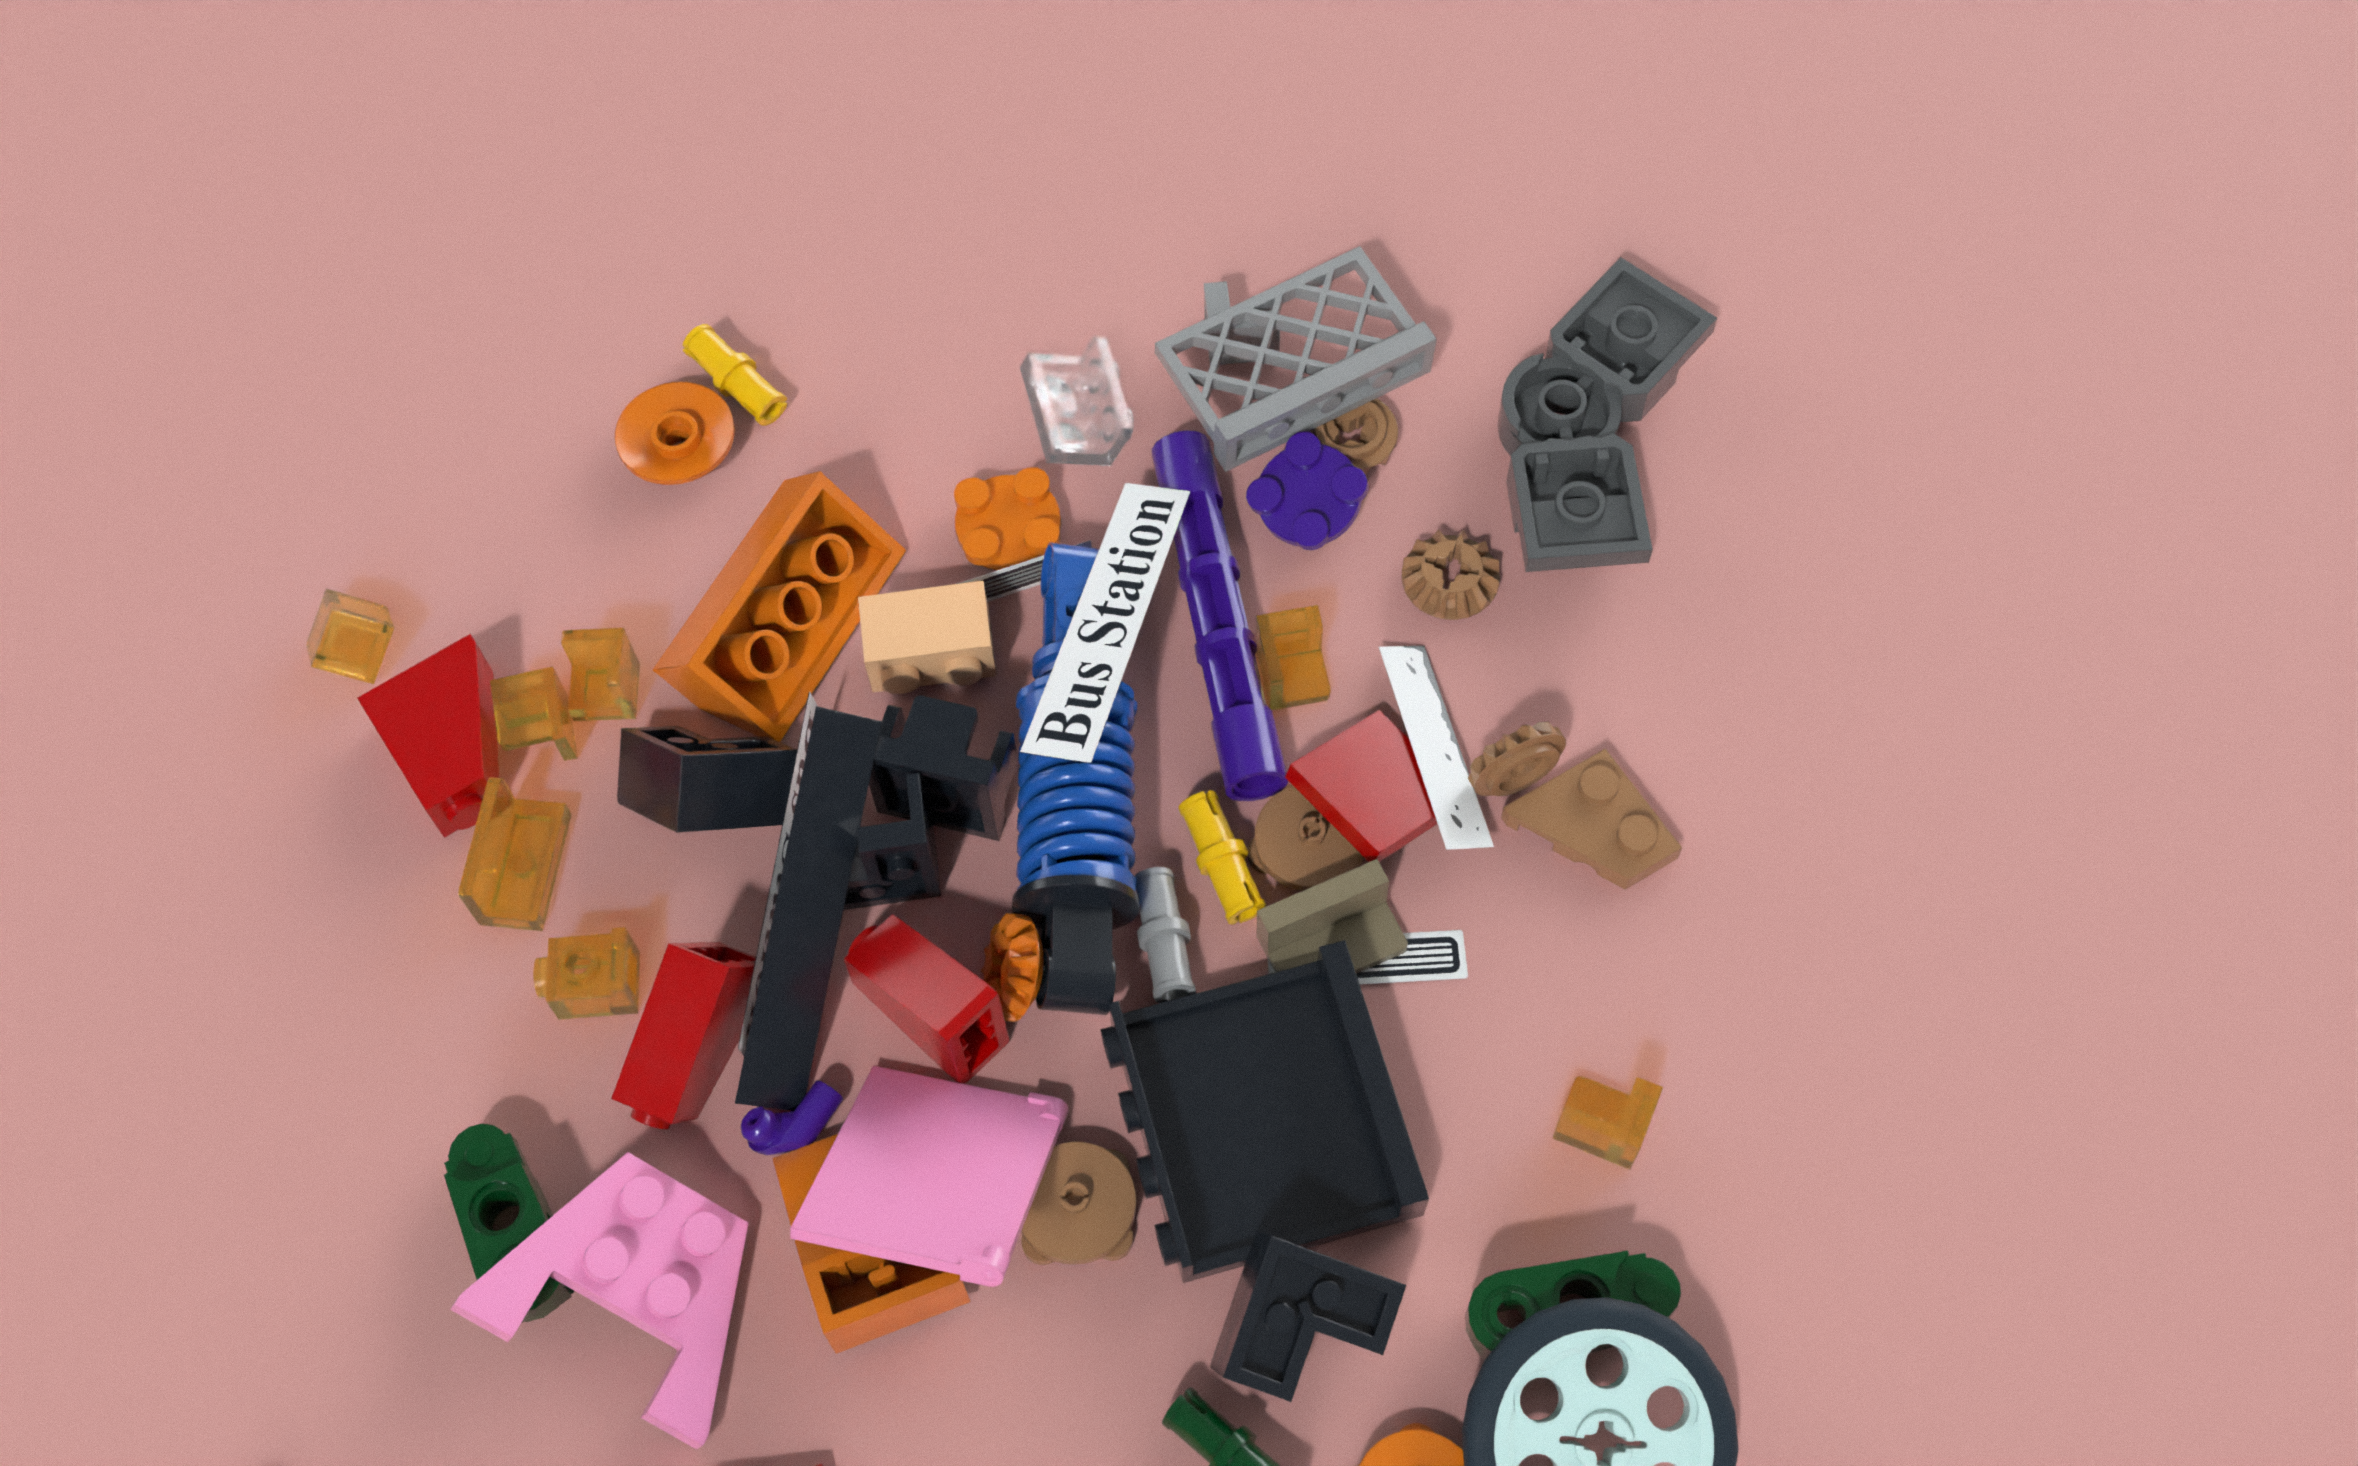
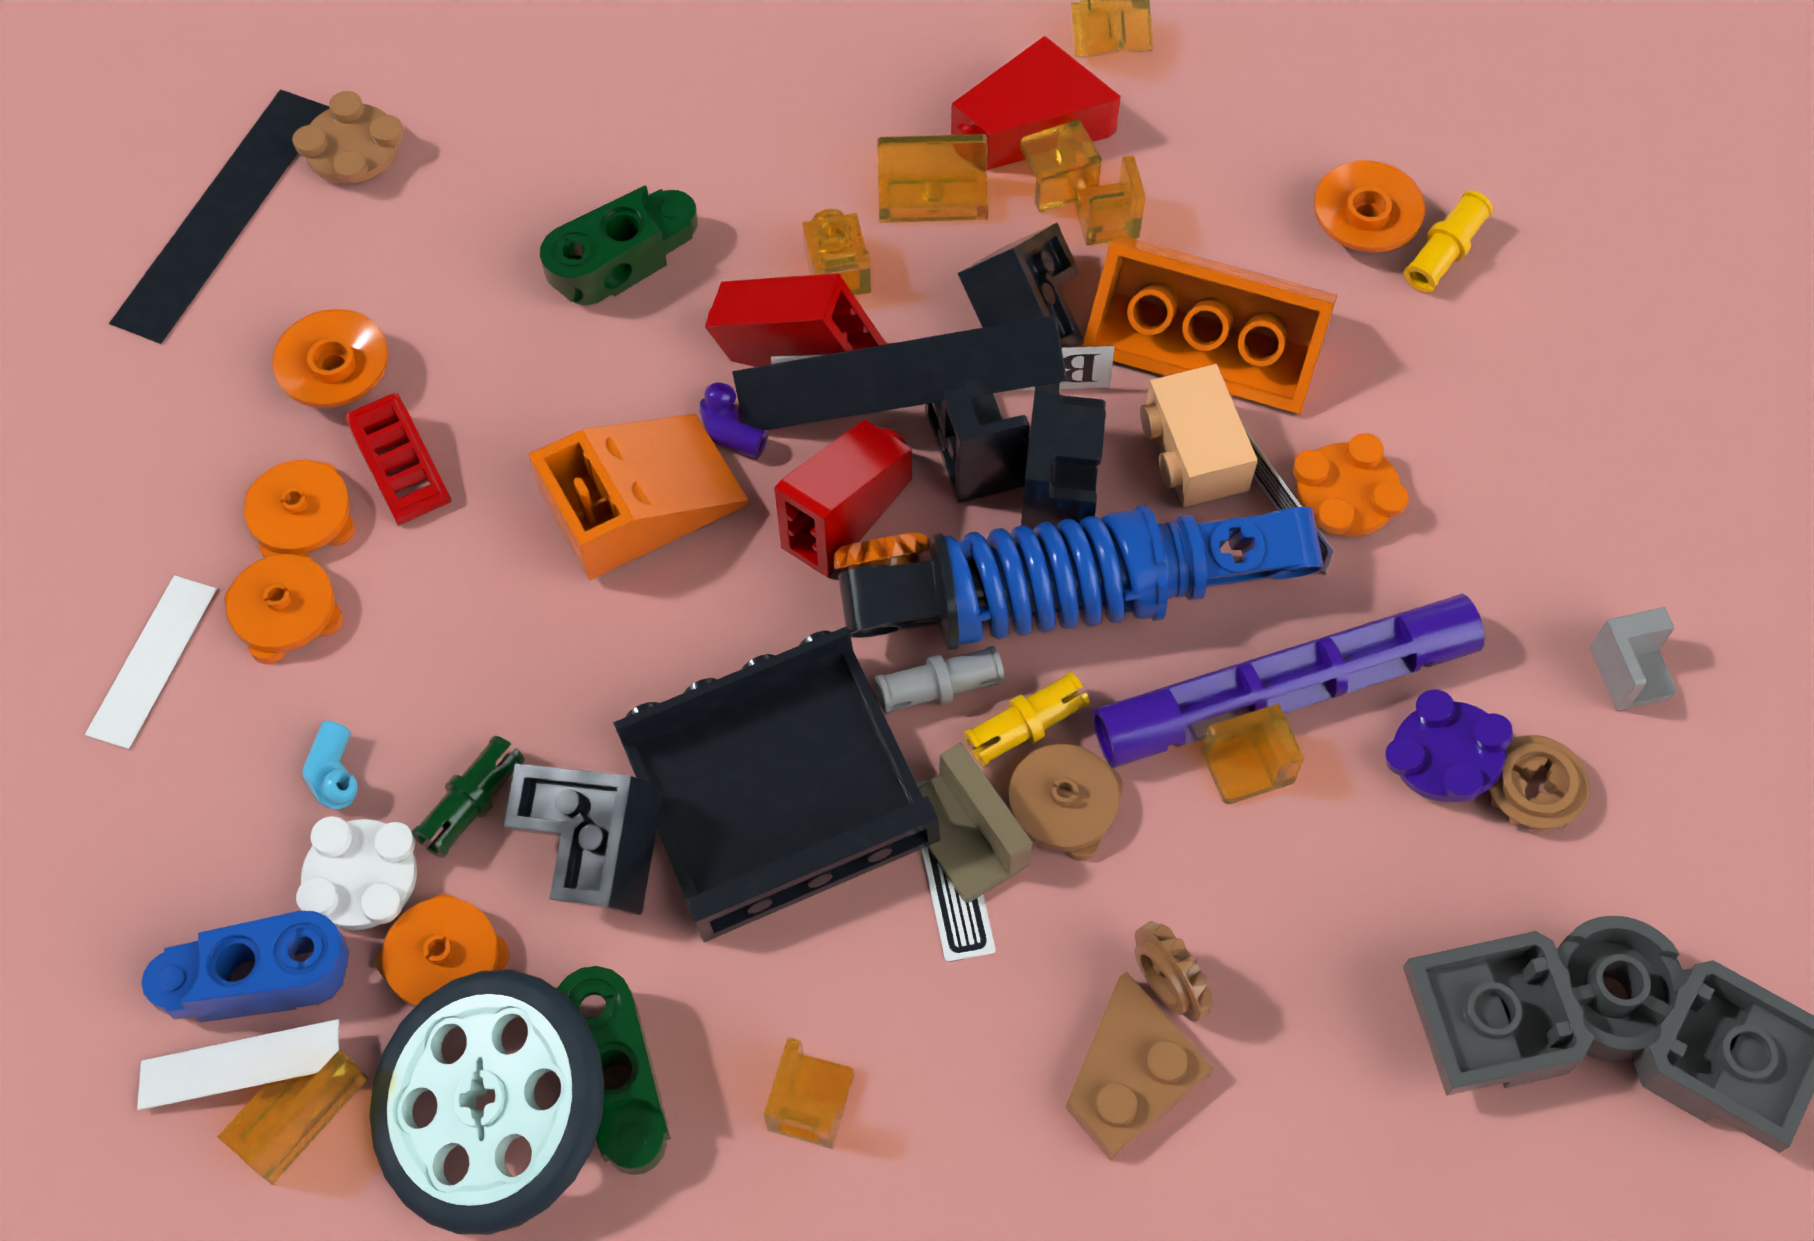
camera: 80 degrees right, 0 degrees up
(645, 1255) = (597, 336): bright pink wing -> none
(932, 1174) = (676, 517): bright pink piece -> none
(1078, 405) = (1490, 521): clear bracket -> none
(1081, 1207) = (678, 645): medium nougat piece -> none
(1105, 624) = (1229, 560): white sticker -> none
(1329, 387) = (1568, 744): light grey fence -> none
(1367, 787) = (1123, 846): tile -> none
(1435, 748) = (1183, 899): white sticker -> none
(1471, 589) = (1368, 915): medium nougat gear -> none

